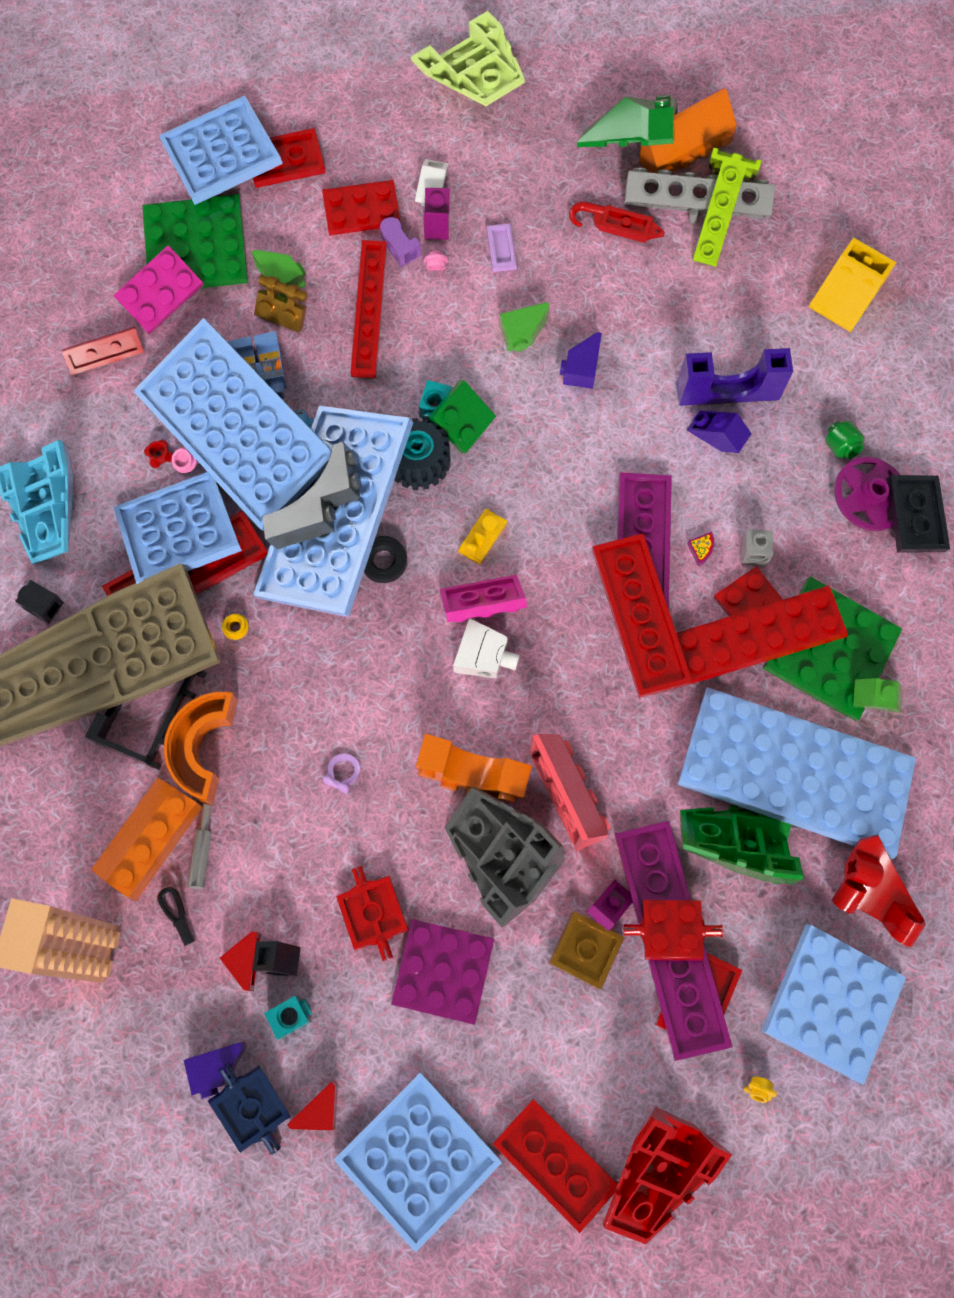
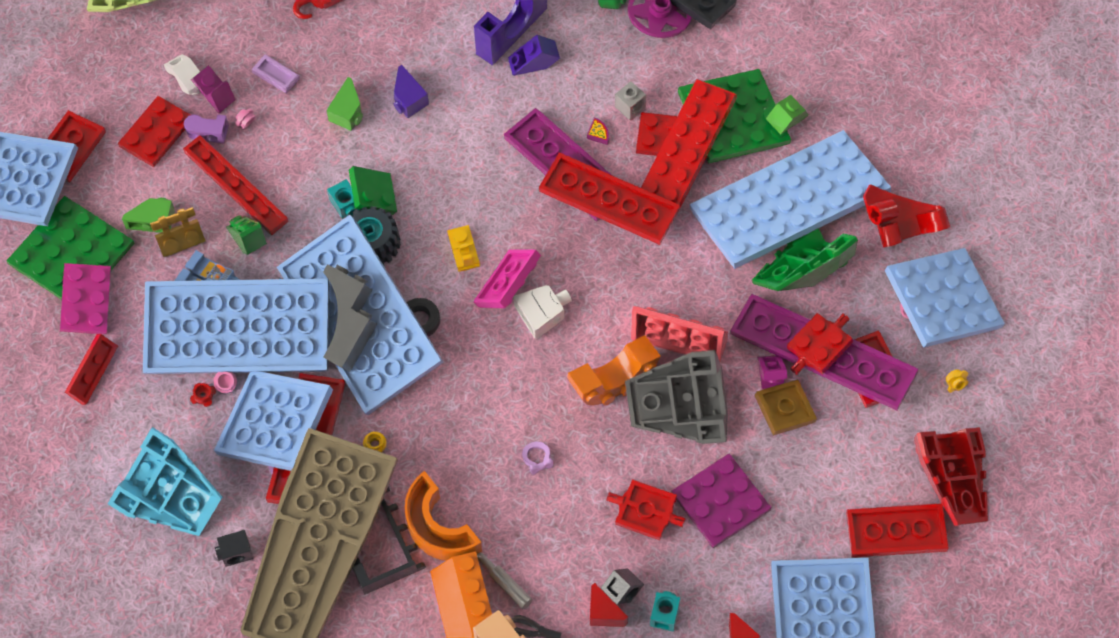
camera: 45 degrees left, 10 degrees down
(328, 356) = (246, 233): none -> green slope

